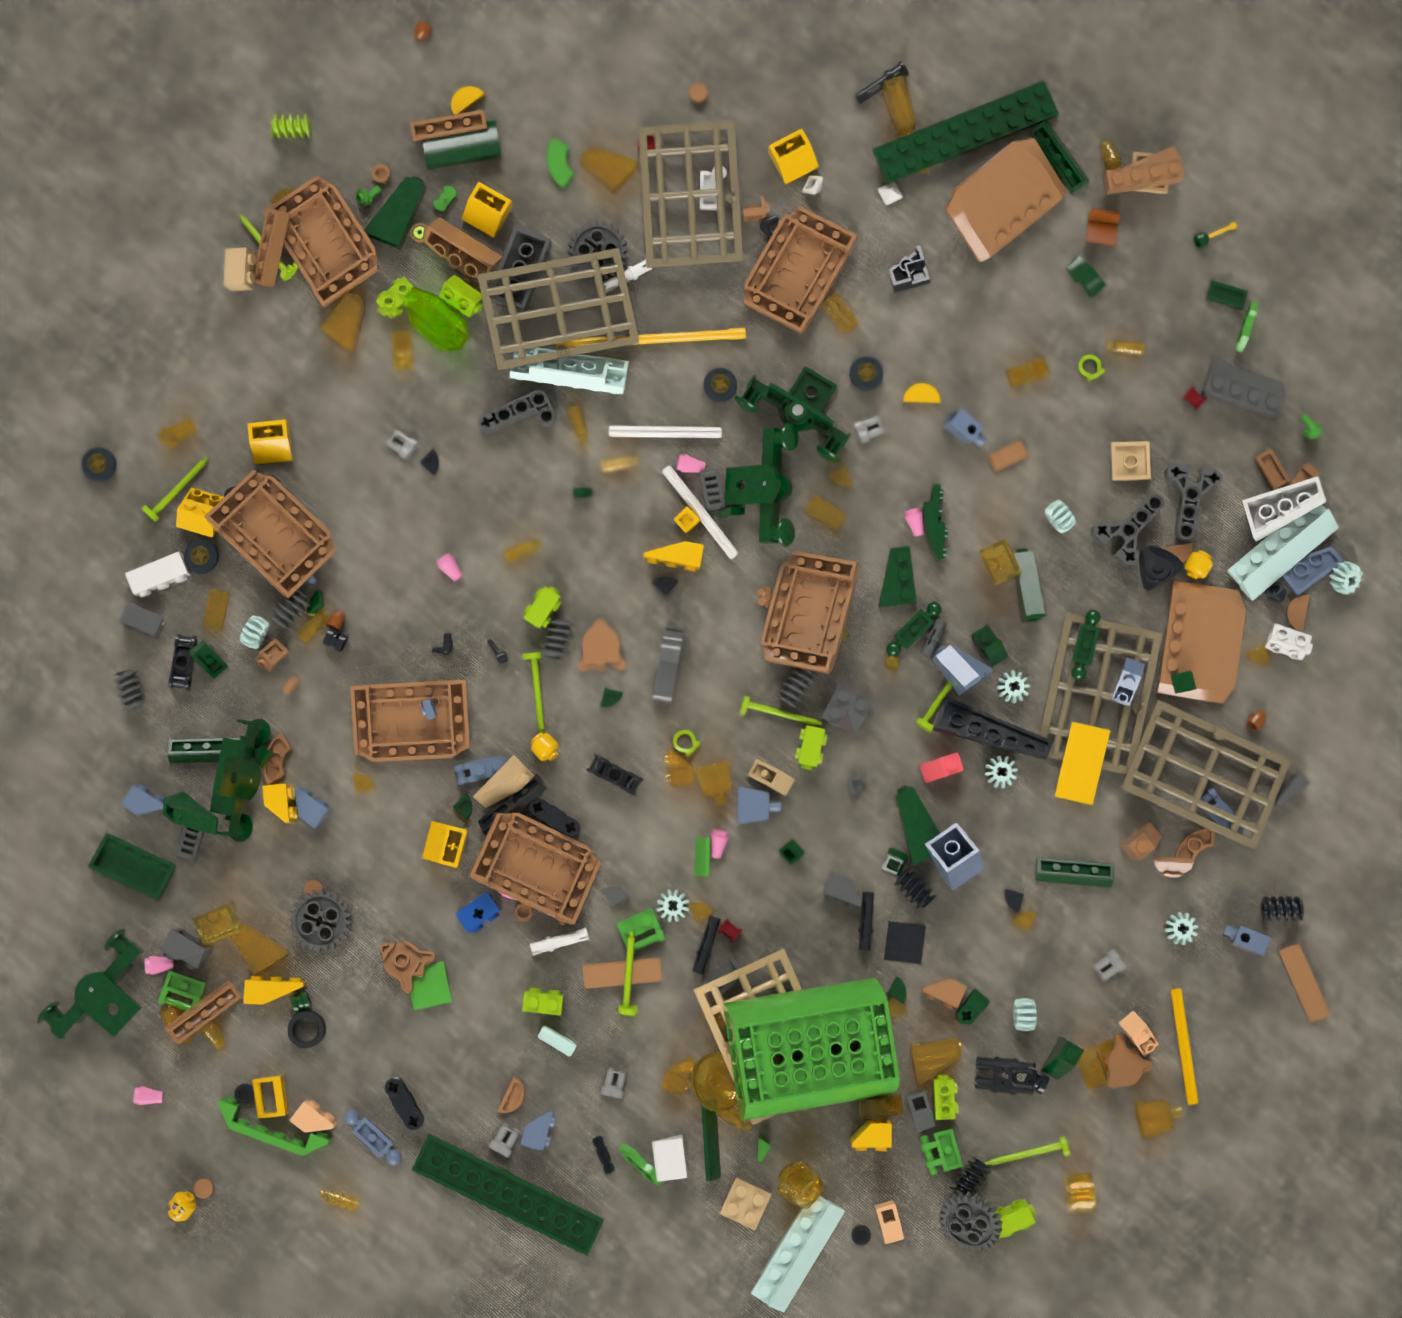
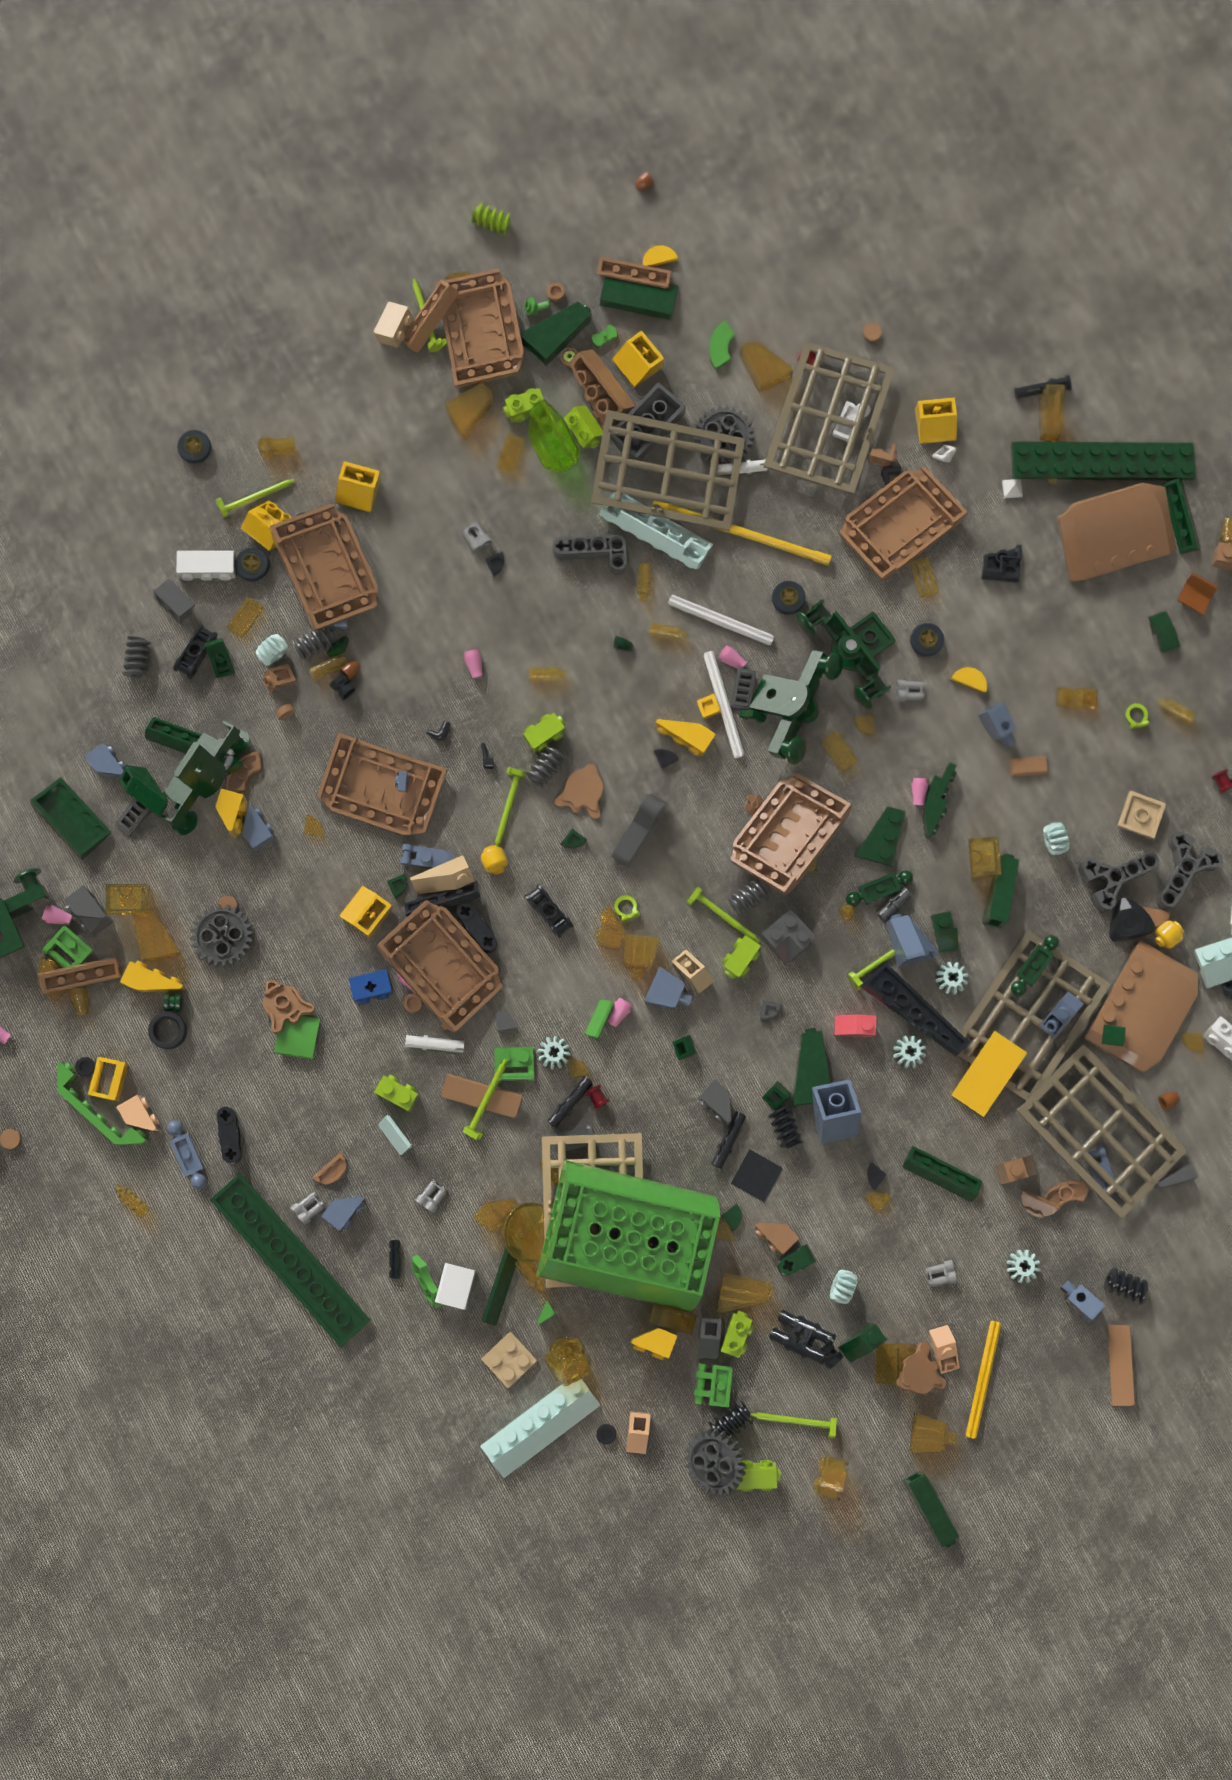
camera: 15 degrees right, 5 degrees down
(1182, 1183) = (931, 1508): none -> dark green slope

